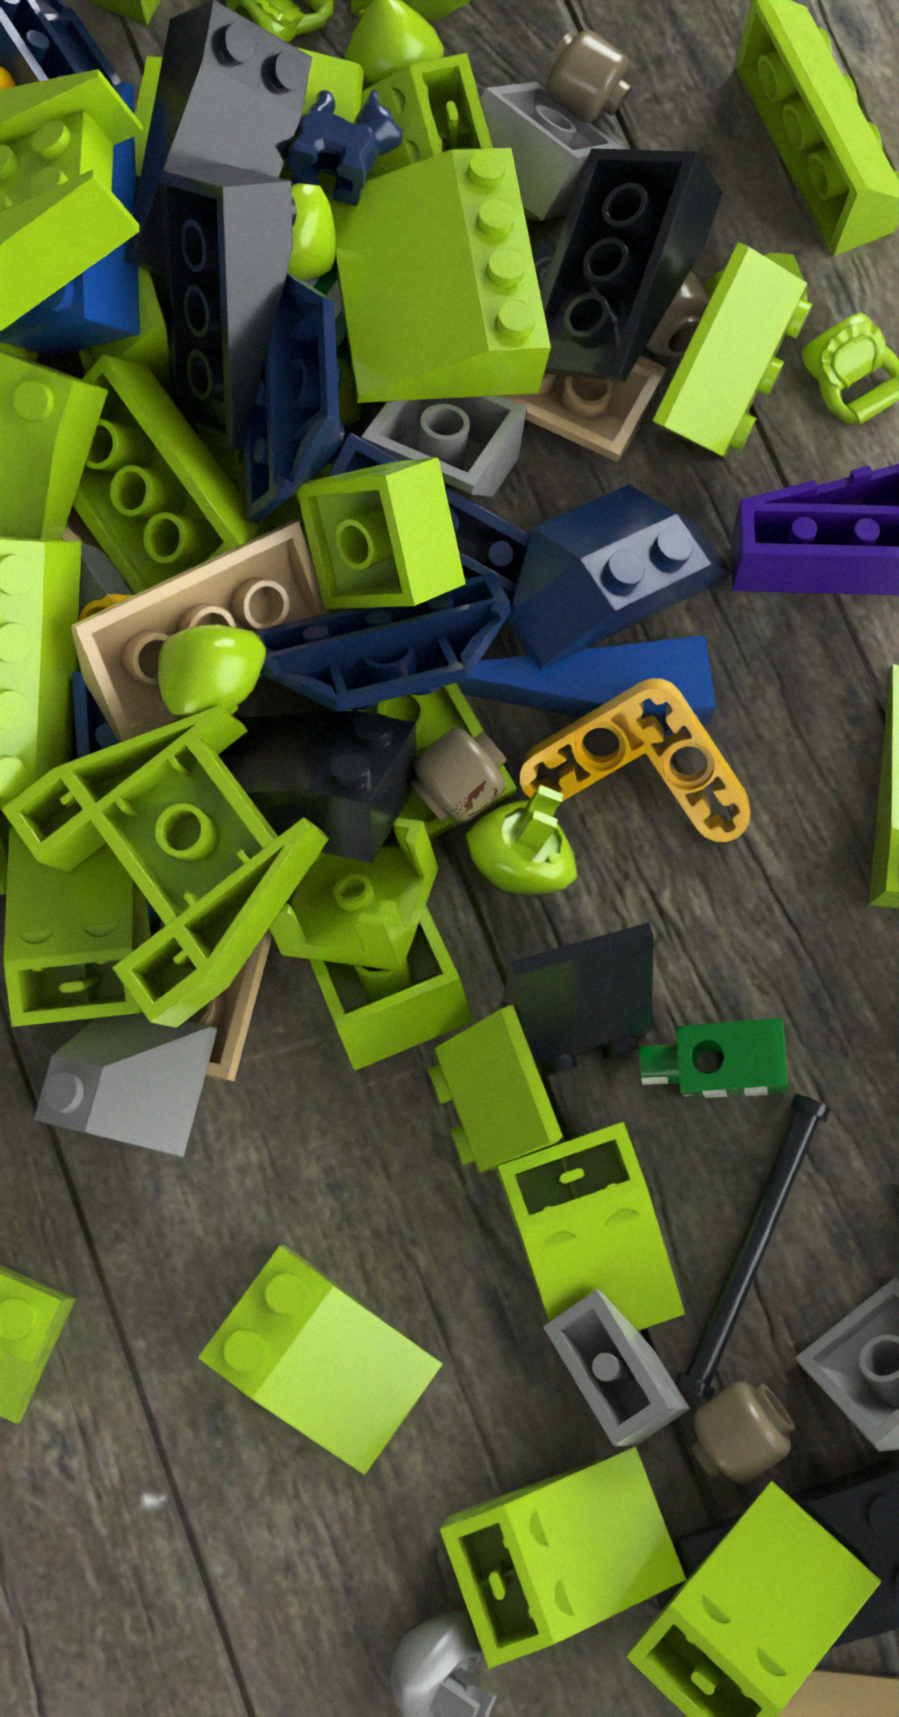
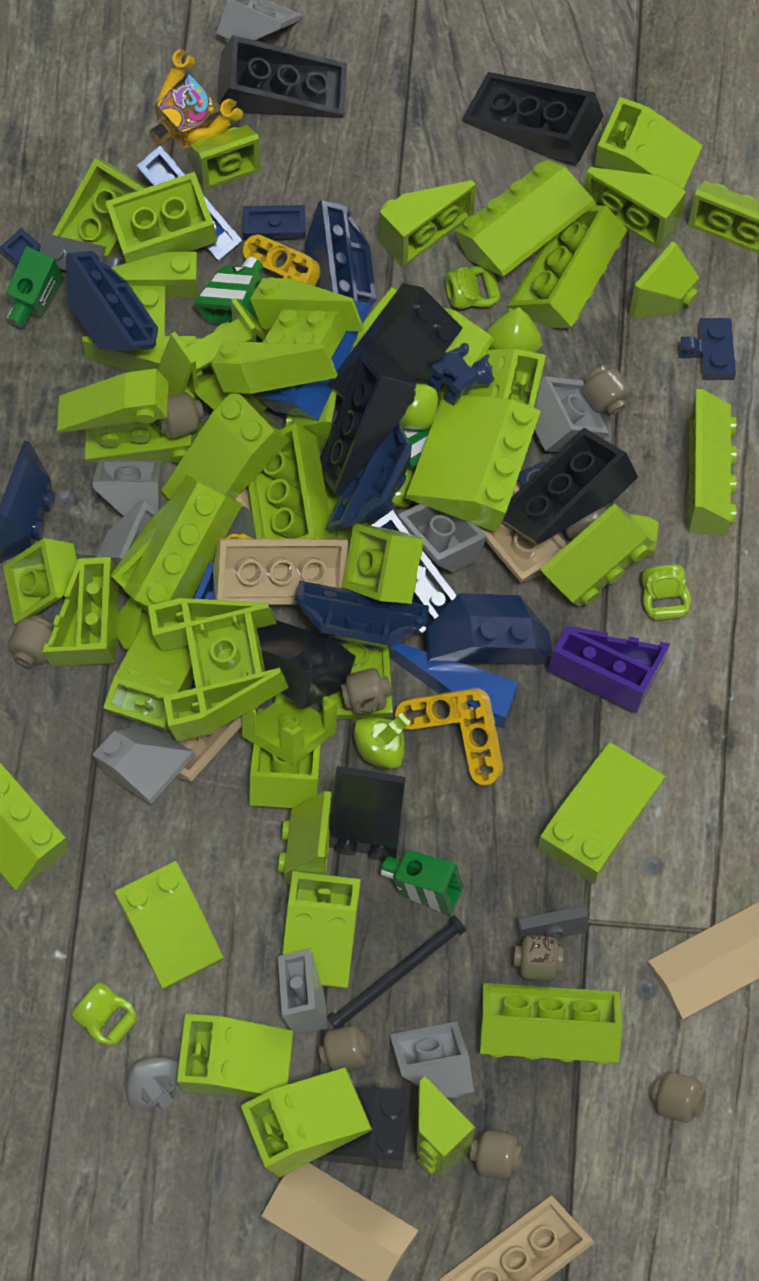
camera: 25 degrees right, 10 degrees down
(208, 668) = (272, 585): lime piece -> none
(269, 1578) = (98, 1008): none -> lime piece

